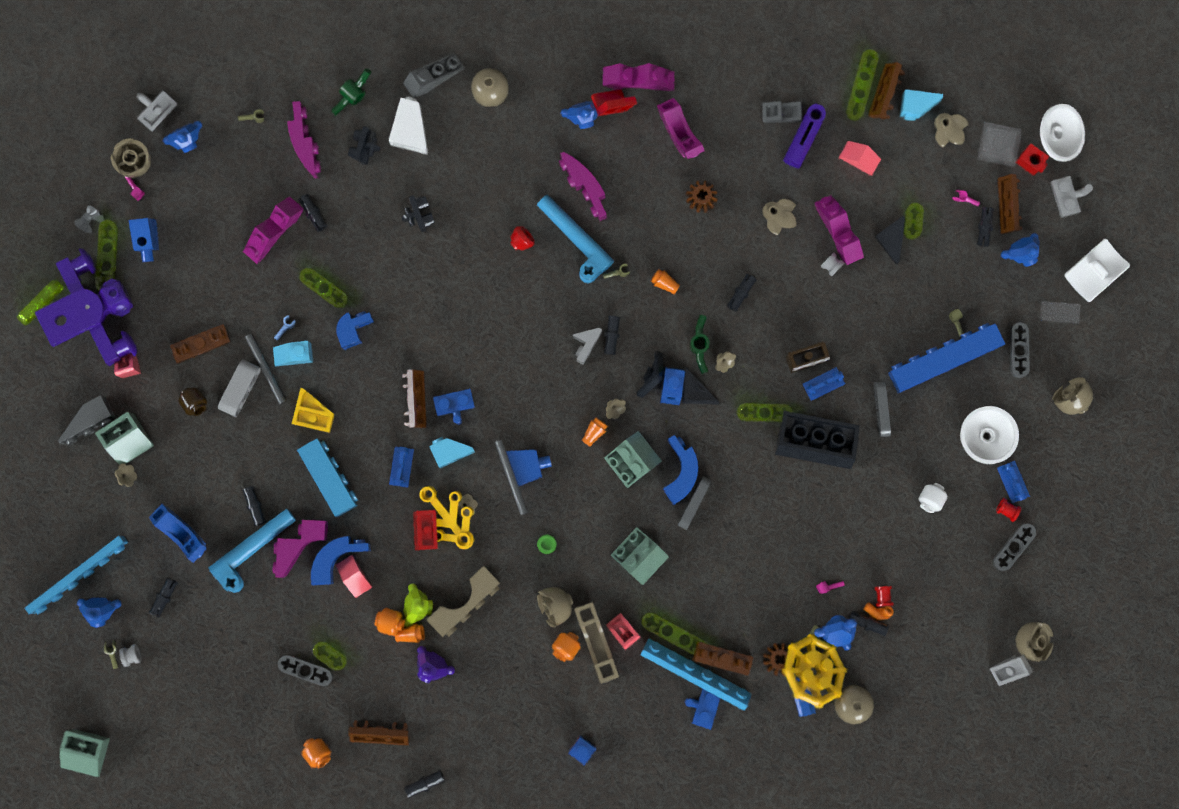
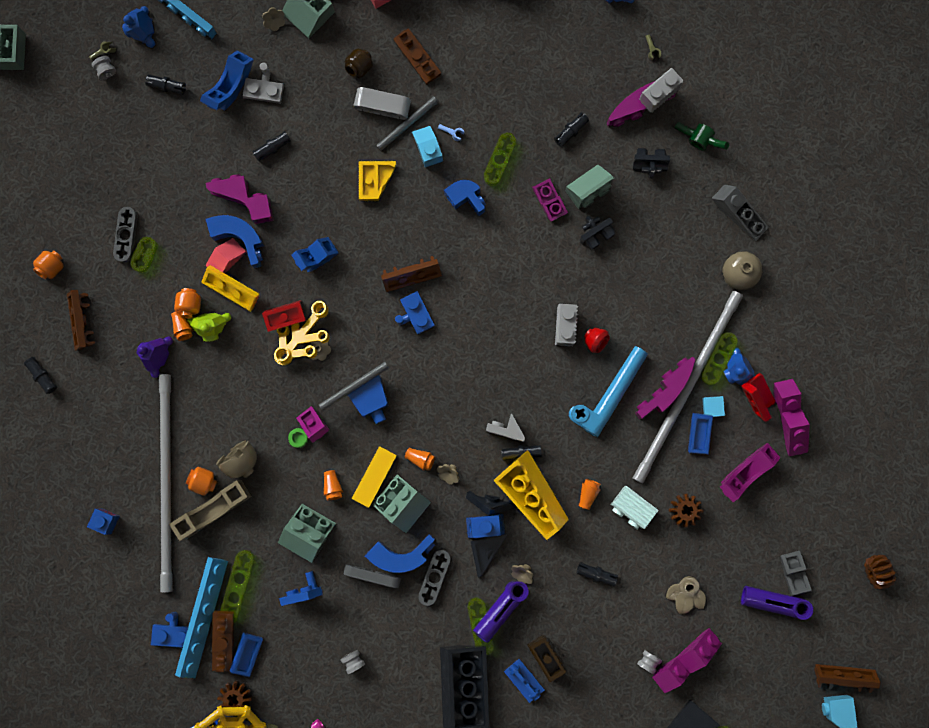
camera: 80 degrees right, 0 degrees up
(193, 501) = (263, 89): none -> light grey plate
(225, 567) = (205, 134): dark azure axle -> none
(270, 230) = (542, 92): magenta arch -> none
(299, 117) = (661, 90): none -> light grey brick
(327, 477) = (314, 209): dark azure brick -> none
(372, 209) = (589, 186): none -> sand green slope
(373, 486) = (315, 255): none -> blue brick
(376, 250) = (549, 200): none -> magenta slope
(384, 577) = (230, 288): none -> yellow tile
(401, 466) = (341, 277): blue hinge -> none
(408, 127) = (681, 200): white slope -> none
(446, 619) = (203, 357): dark tan arch -> none
(448, 451) = (367, 319): medium azure slope -> none
(470, 664) = (166, 579): none -> light grey piece
(501, 263) = (566, 324): none -> light grey brick
(537, 526) = (312, 424): none -> magenta slope
(575, 142) = (717, 374): none -> clear neon green beam
(601, 480) = (374, 477): none -> yellow tile
(601, 522) = (332, 487): none -> orange cone
(611, 147) = (713, 406): none -> medium azure tile
(617, 272) = (586, 442): olive hand -> none
(622, 631) = (227, 534): coral slope -> none
(633, 165) = (700, 433): none -> blue tile
(651, 223) = (645, 466): none -> light grey piece
(654, 333) = (532, 495): none -> yellow wedge
(688, 243) = (634, 508): none -> light aqua brick
(696, 567) = (306, 593): none -> blue plate
(699, 335) = (524, 546): dark green piece -> none
(709, 437) = (424, 589): none -> dark grey beam
(740, 639) = (246, 654): none -> blue tile
(754, 389) = (500, 611): none -> dark purple piece
(770, 539) = (352, 662): none -> light grey wheel
(798, 35) = (880, 571): none -> reddish brown gear
(860, 156) = (769, 666): coral slope -> none
(863, 85) = (846, 647): clear neon green beam -> none

